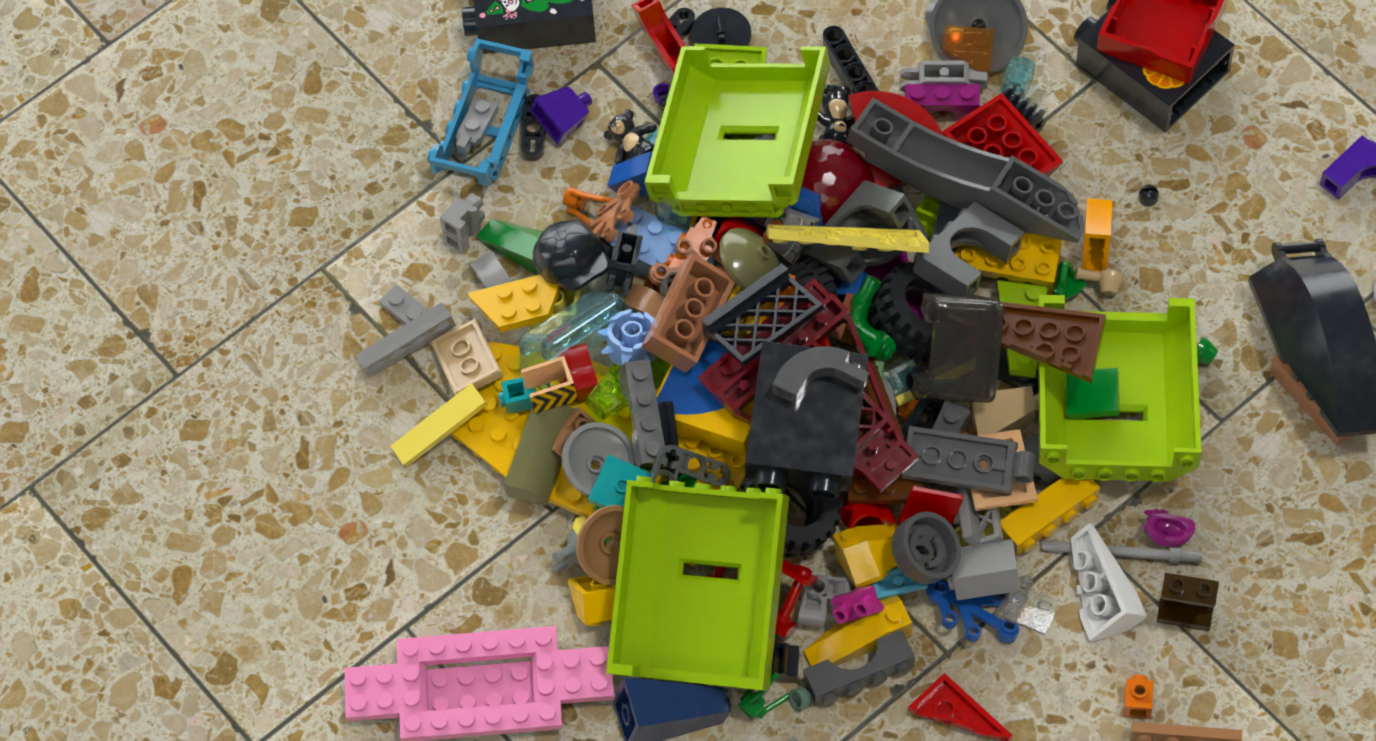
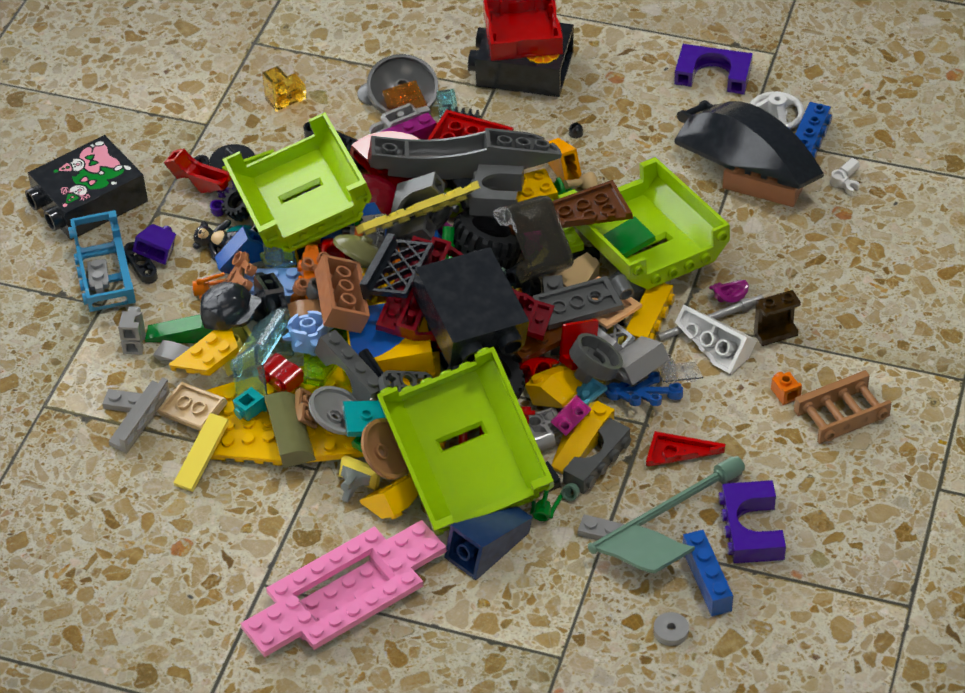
camera: 35 degrees left, 15 degrees down
(546, 373) = (273, 379): piece -> none
(813, 364) = (464, 261): dark grey arch -> none

